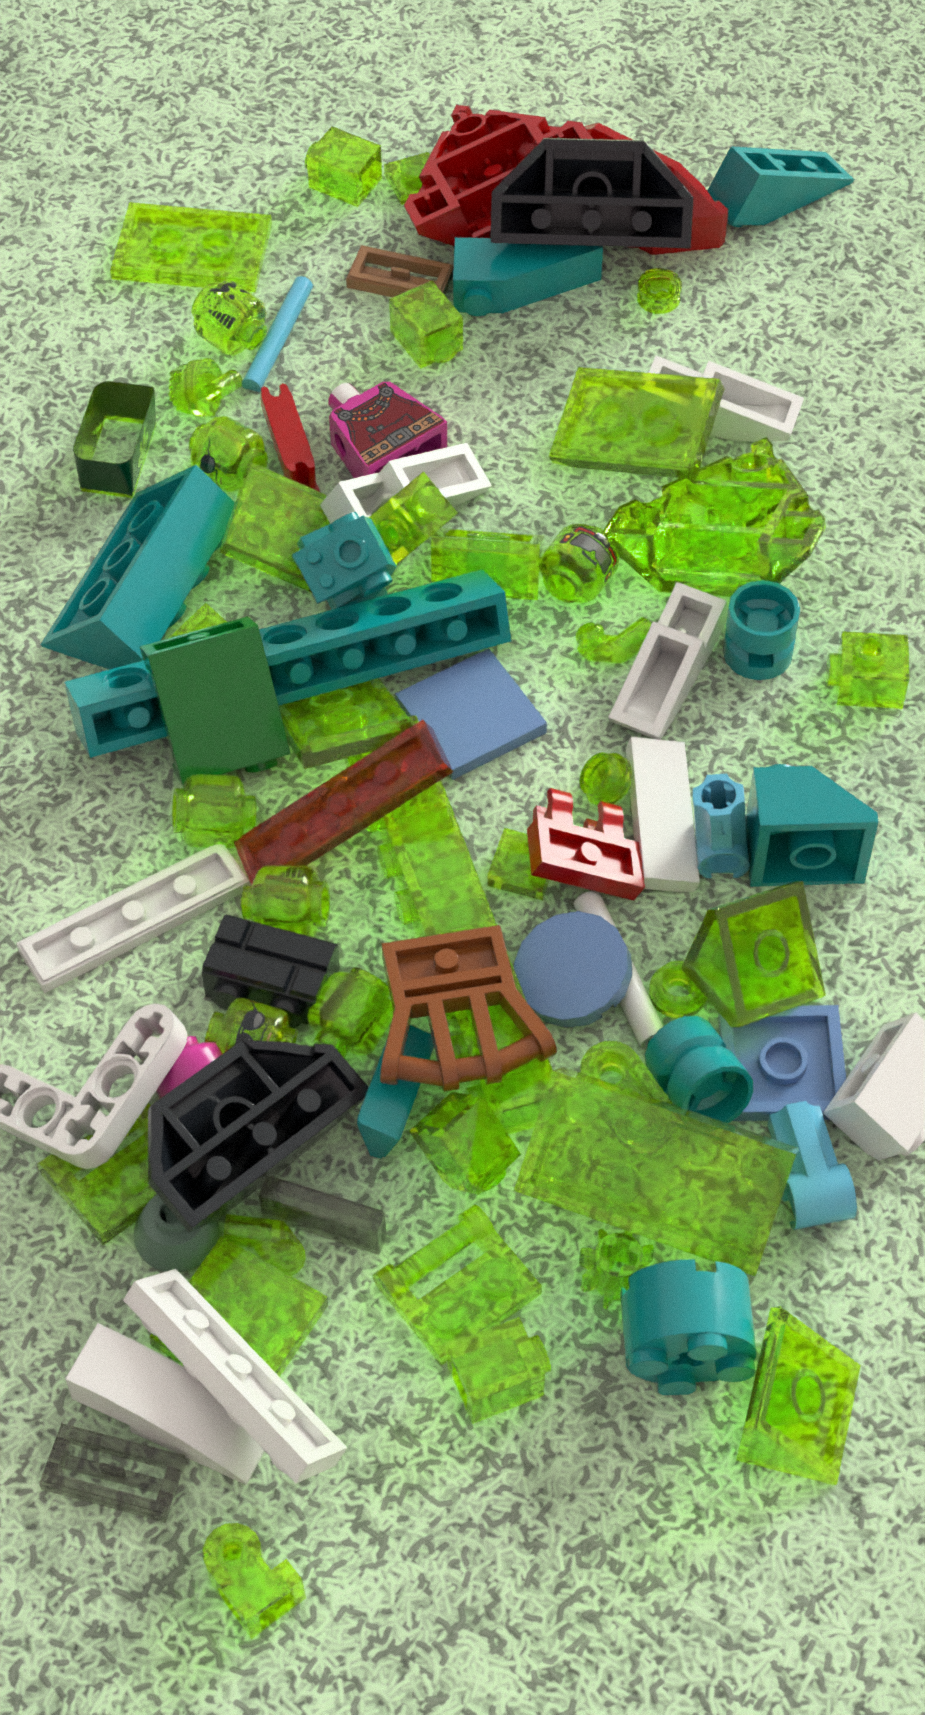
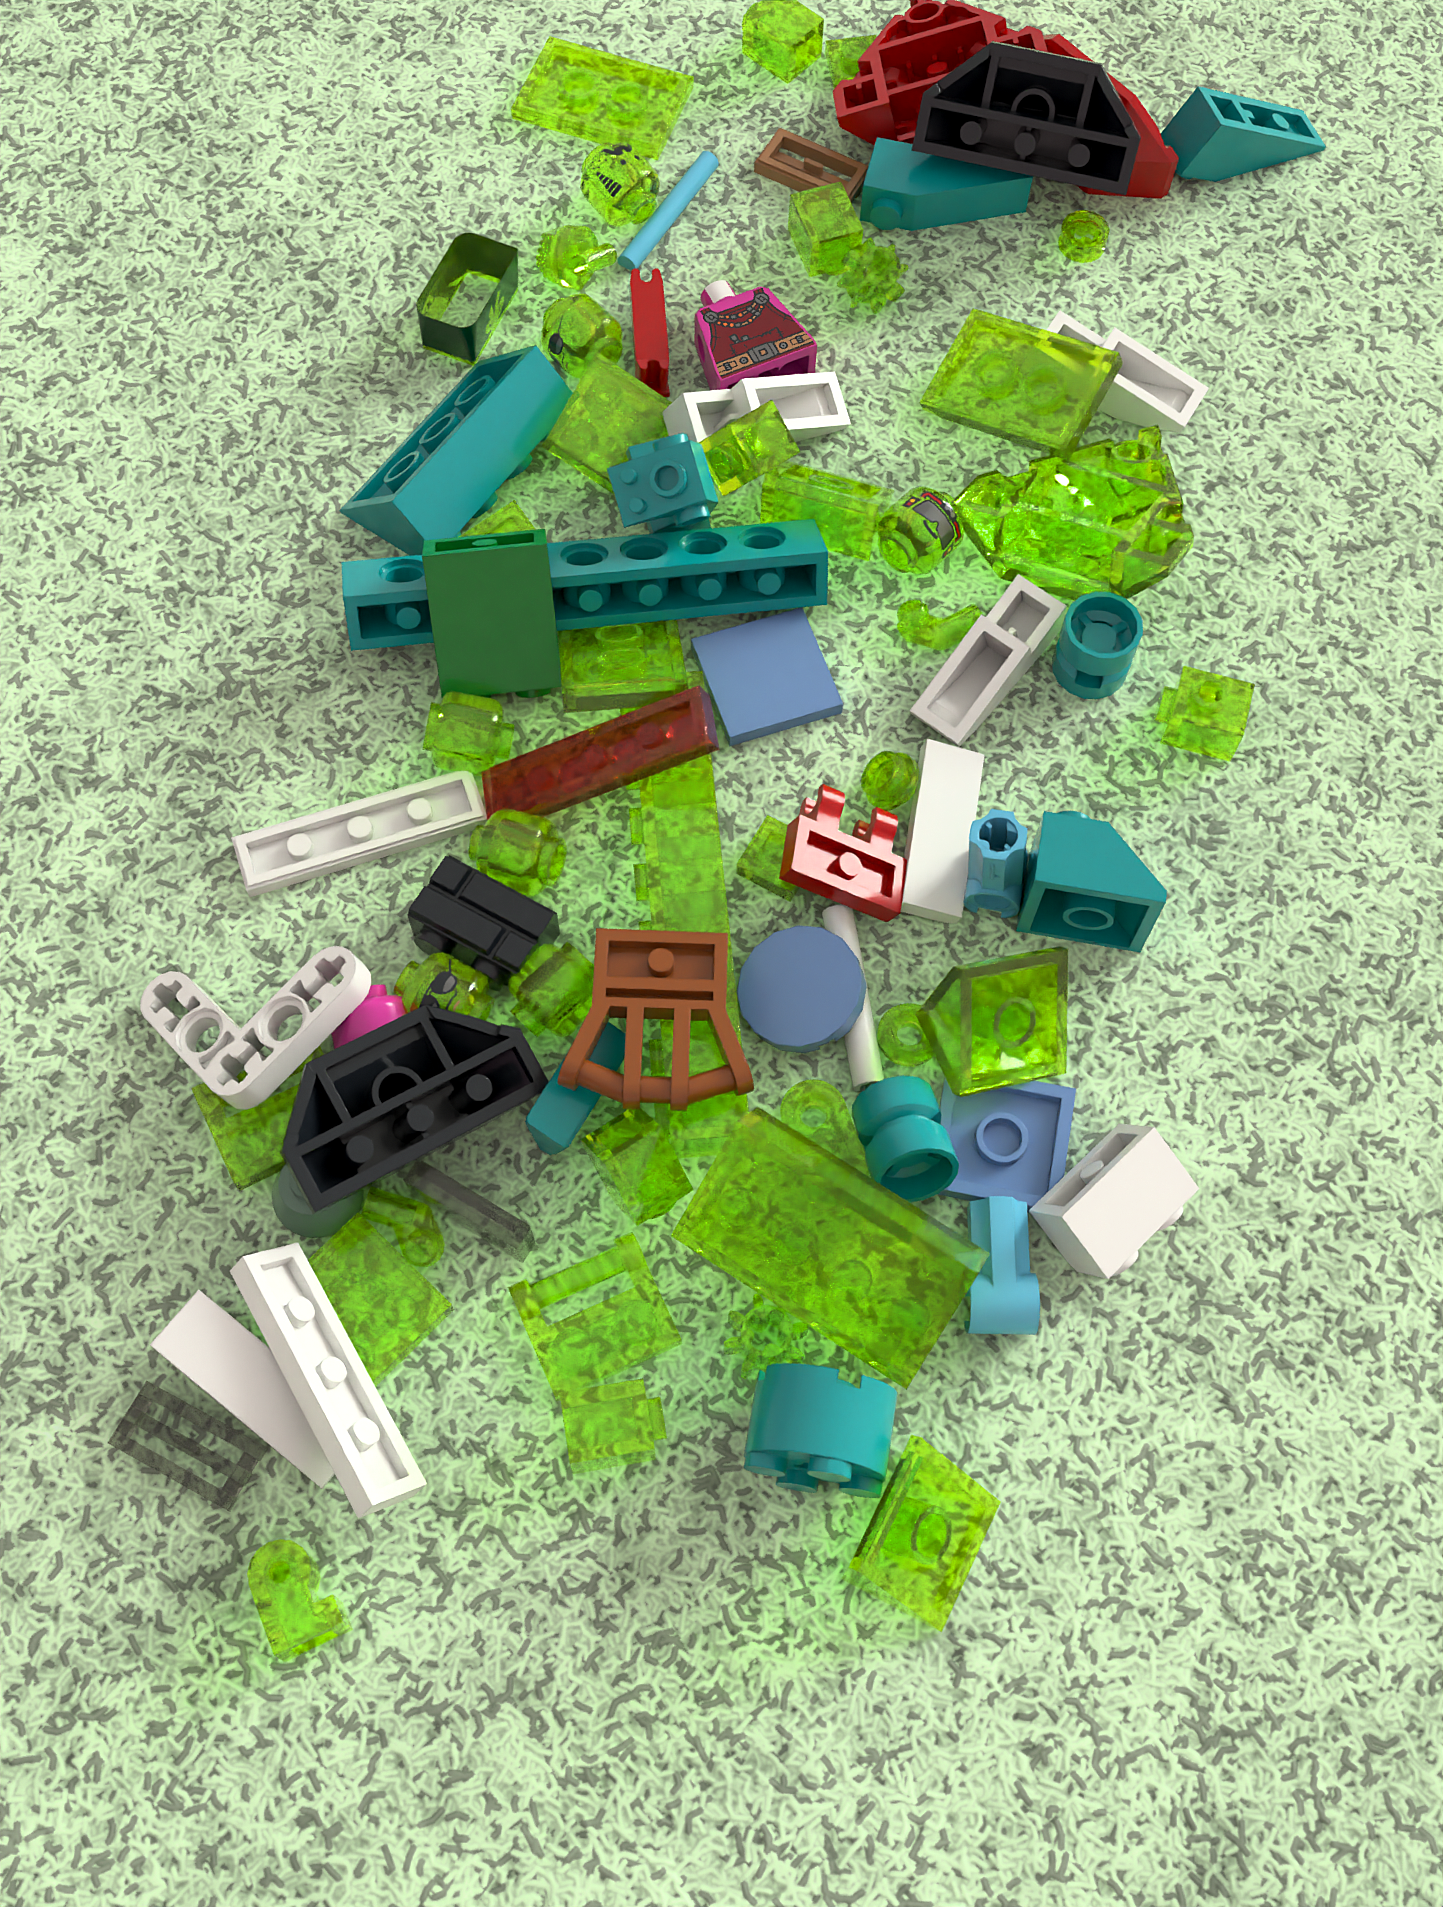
camera: 10 degrees right, 10 degrees up
(480, 355) = (881, 267): none -> clear neon green gear

